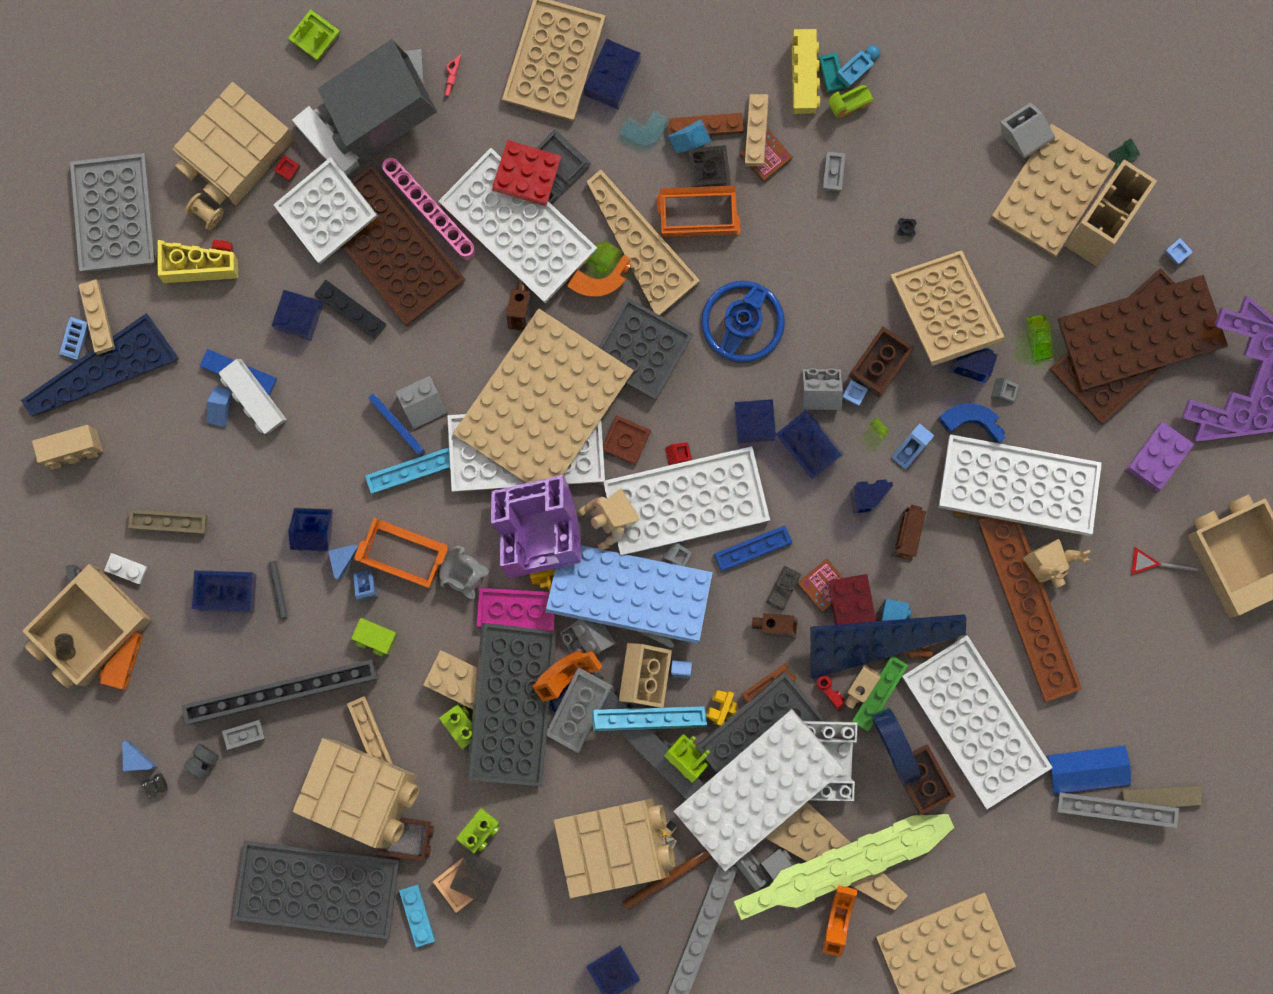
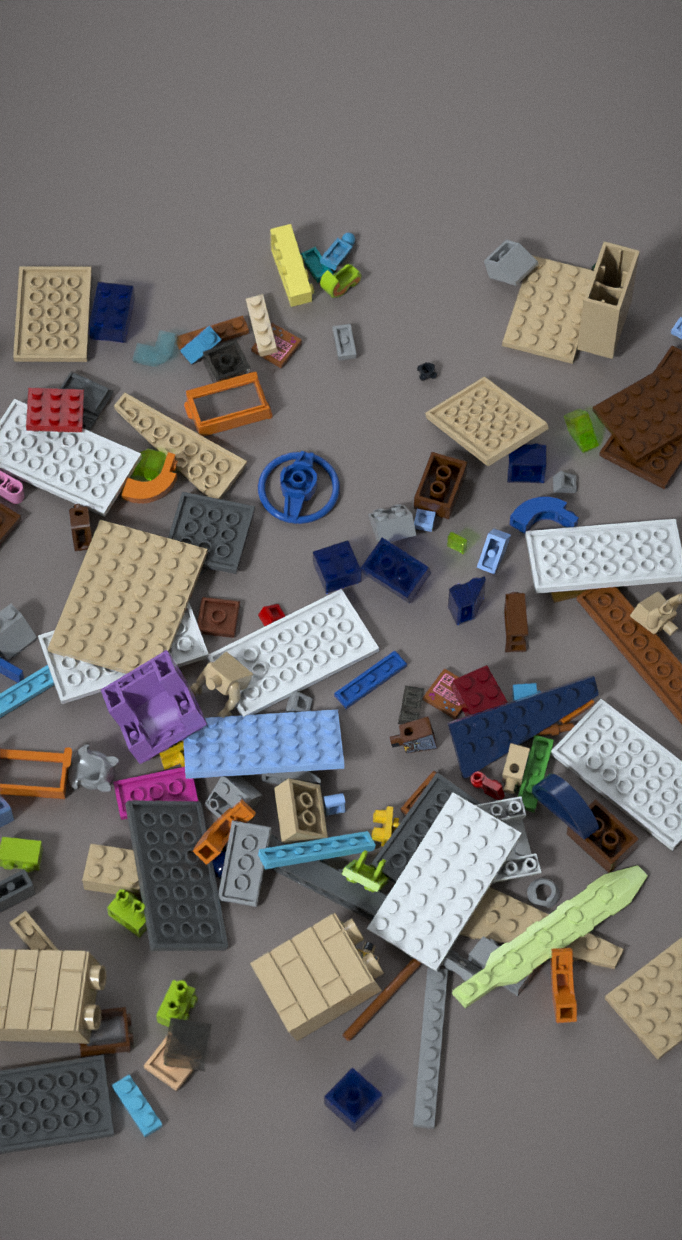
camera: 20 degrees left, 20 degrees down
(840, 810) = (551, 900): none -> light grey piece

